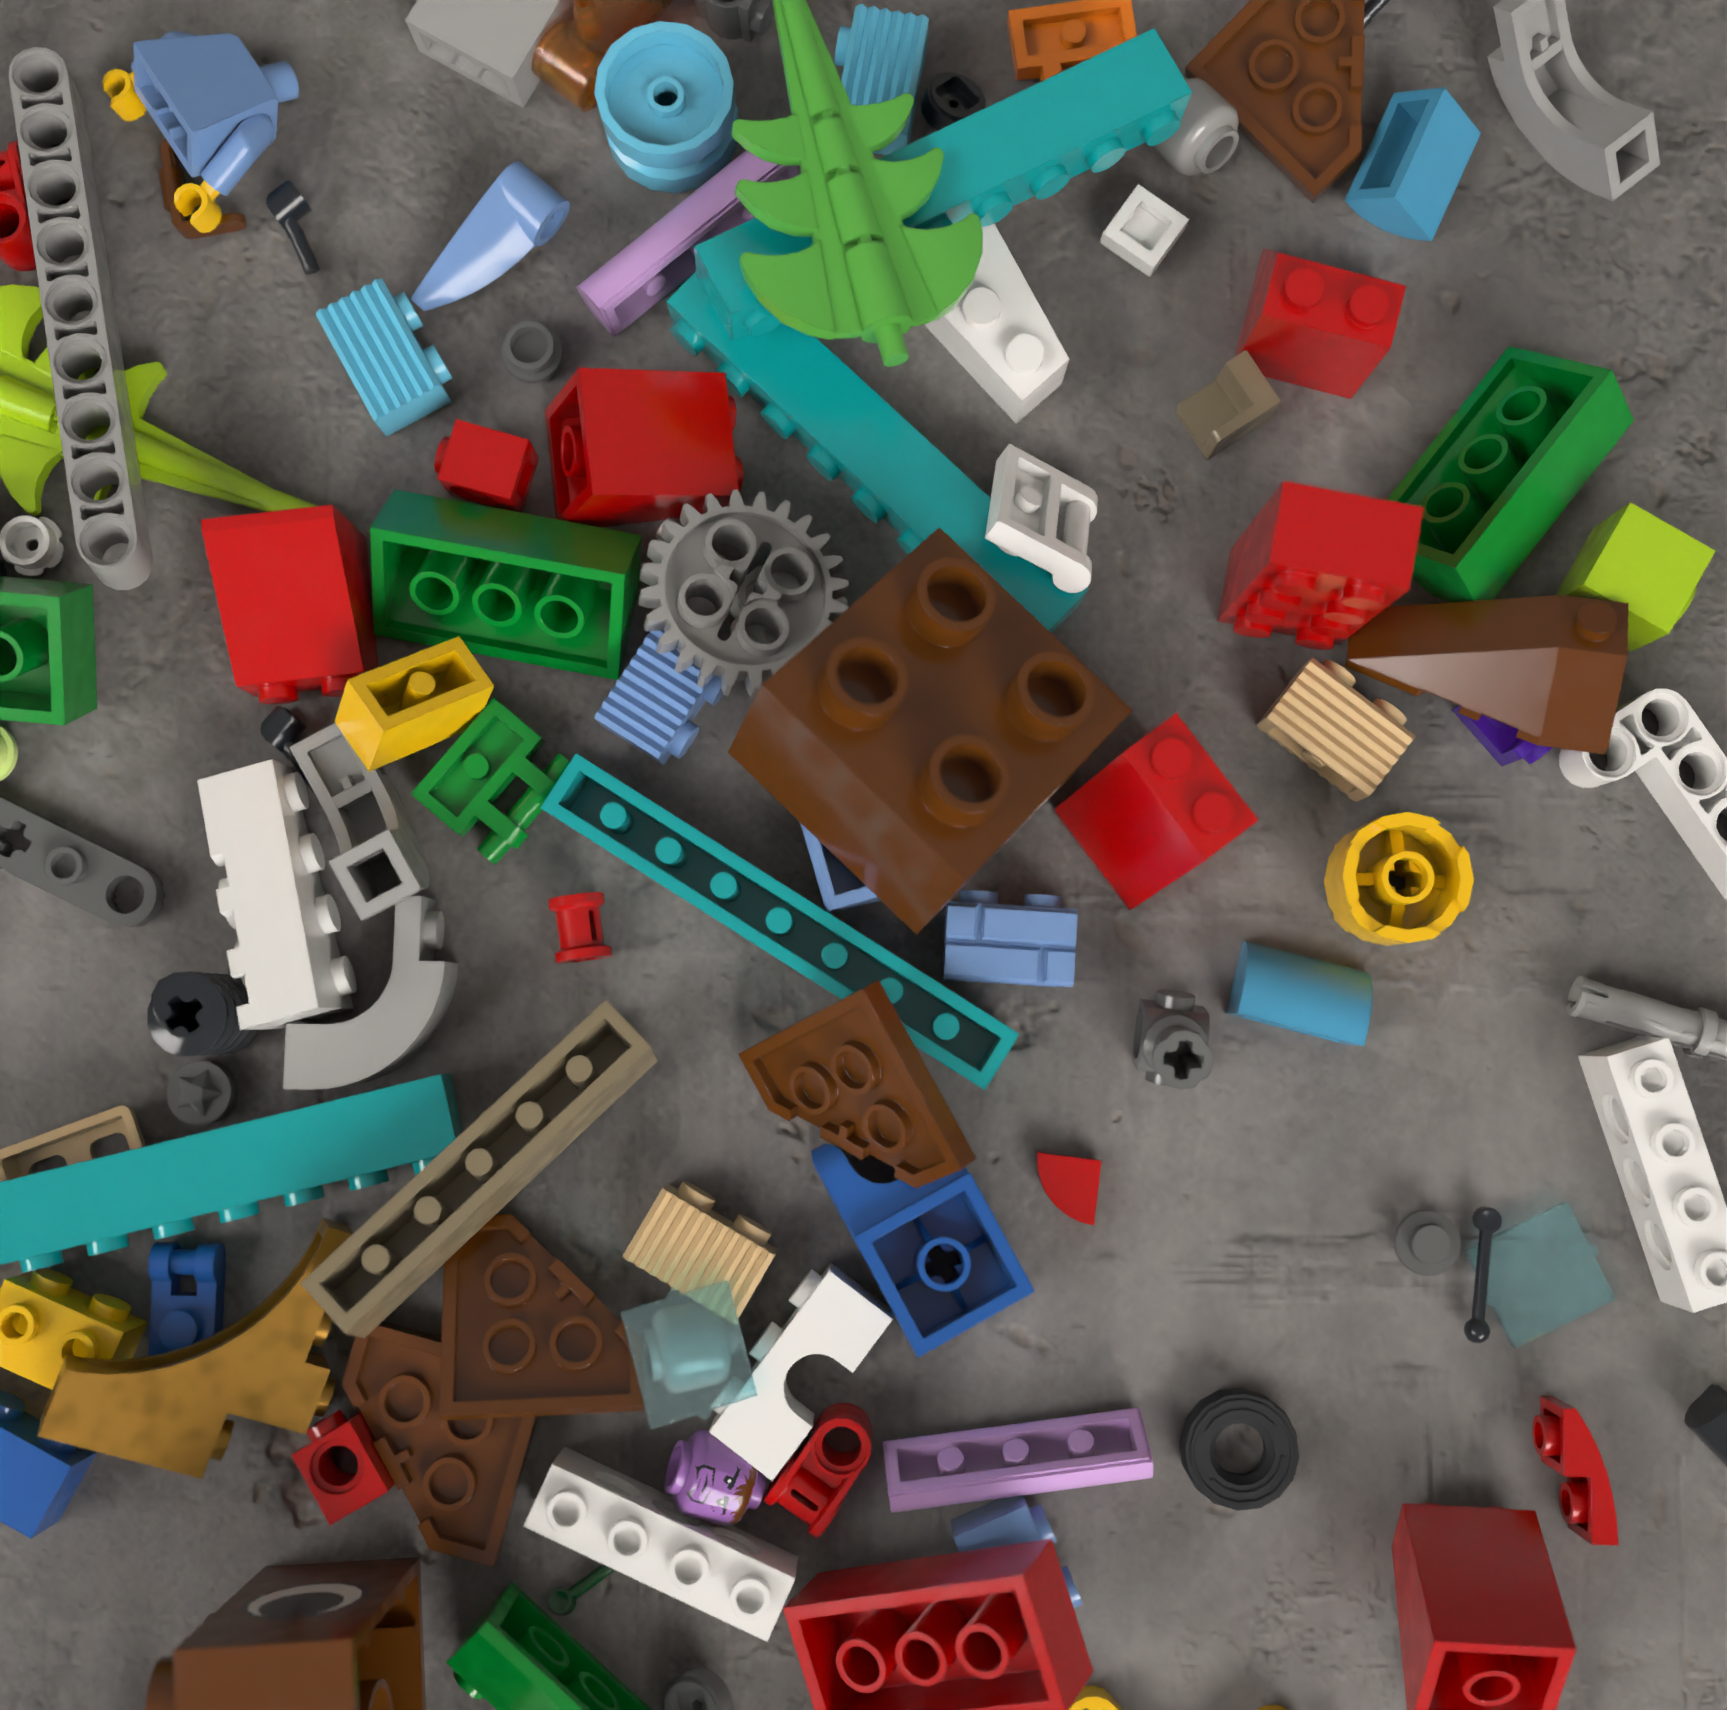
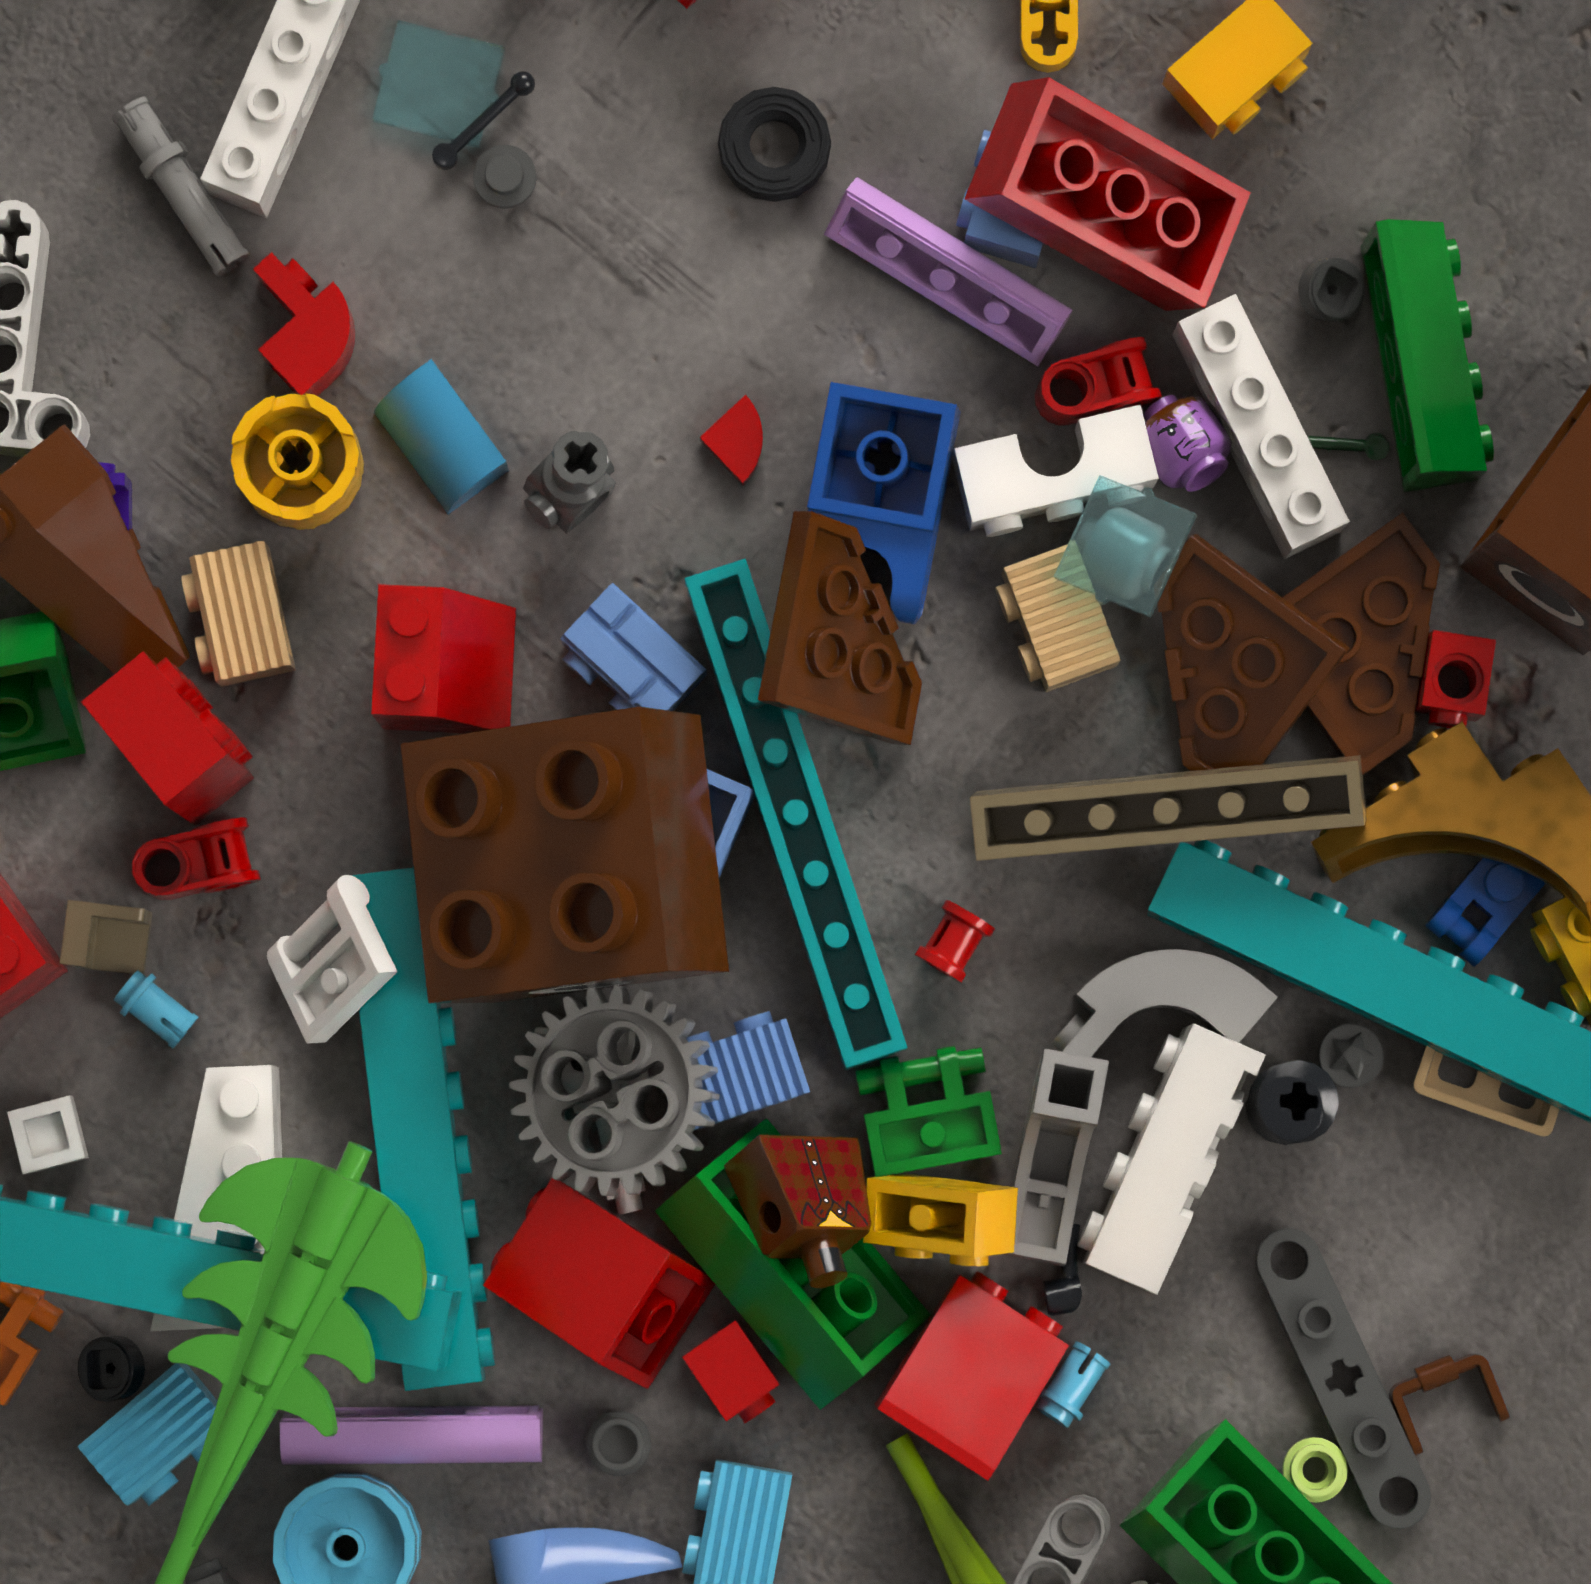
camera: 145 degrees left, 0 degrees up
(216, 668) = (1069, 1388): none -> medium azure pin
(526, 627) = (804, 1200): none -> reddish brown torso
(1144, 386) = (155, 1008): none -> medium azure pin
(1202, 521) = (200, 860): none -> red piece
(1462, 996) = (319, 337): none -> red brick

